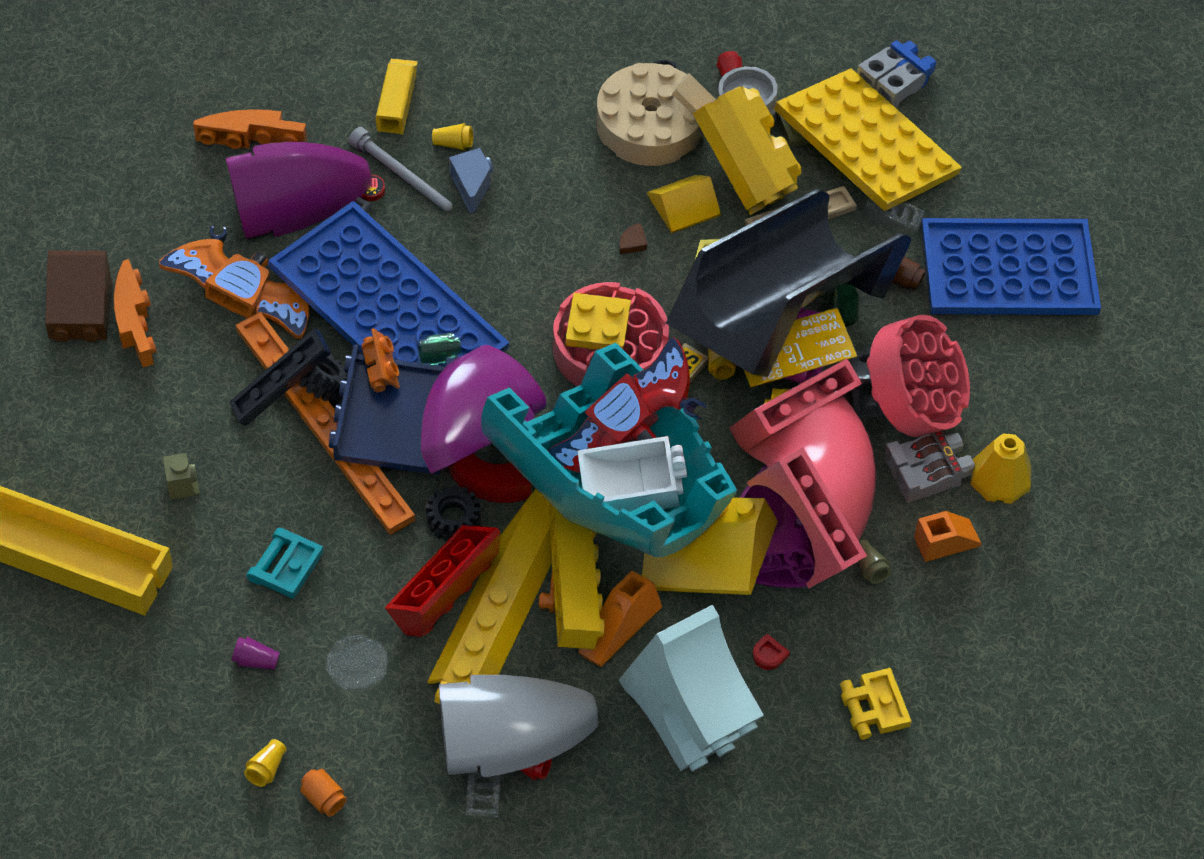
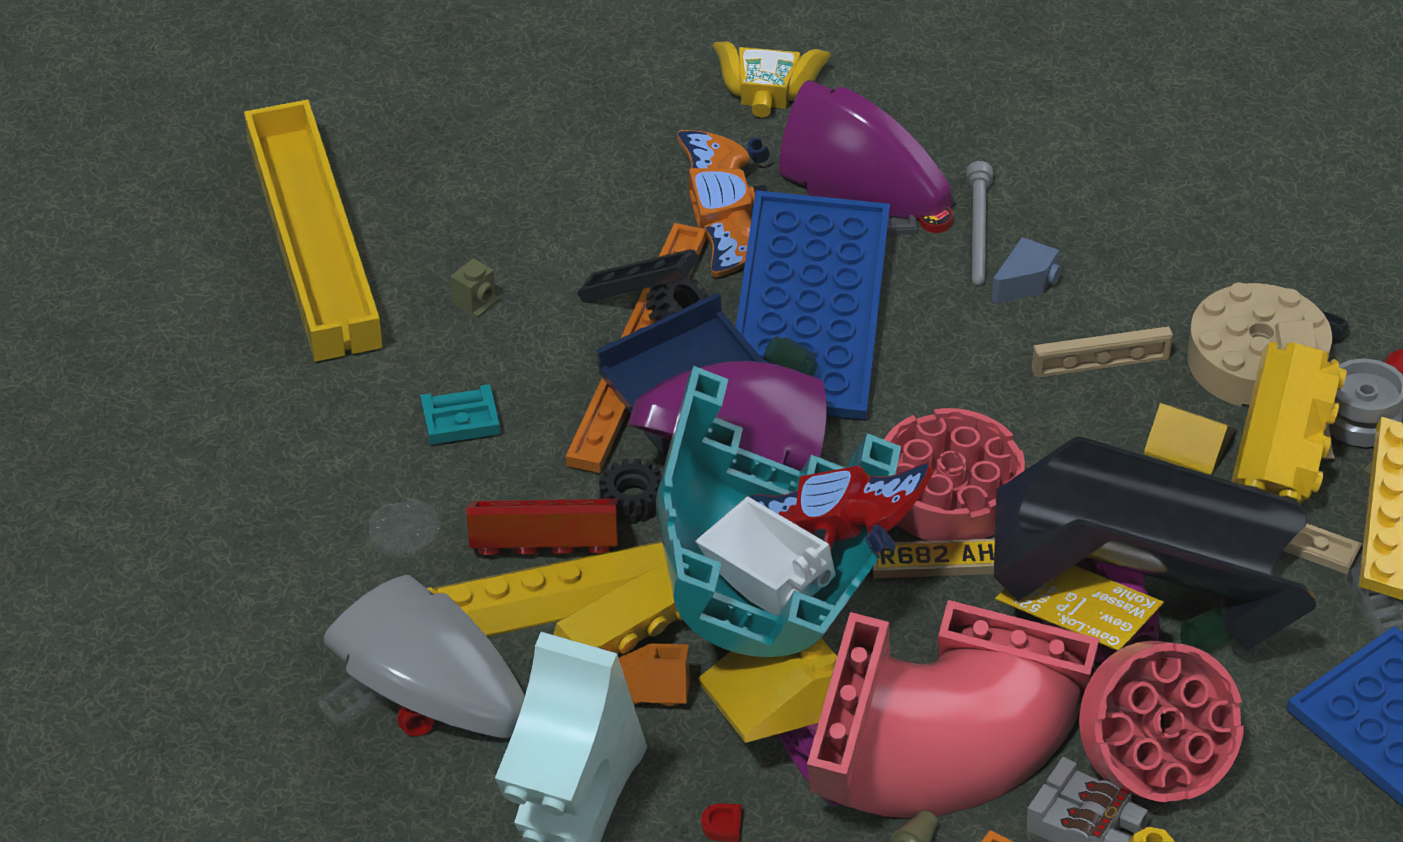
camera: 55 degrees right, 10 degrees down
(78, 295) = (588, 108): reddish brown slope -> none
(131, 312) = (614, 149): orange slope -> none
(149, 181) = (767, 76): none -> yellow torso
(241, 126) = (899, 97): orange slope -> none
(254, 654) = (341, 451): magenta cone -> none
(264, 764) = (235, 529): yellow cone -> none
(323, 792) = (242, 585): orange brick -> none
(379, 351) = (727, 326): orange hinge -> none
(396, 96) = (1057, 166): yellow piece -> none
(454, 136) = (1061, 233): yellow cone -> none
(577, 191) = (1102, 351): none -> tan tile
(597, 321) = (944, 442): yellow plate -> none
(633, 240) = (1098, 427): reddish brown tile -> none
(909, 274) = (1309, 652): reddish brown brick -> none

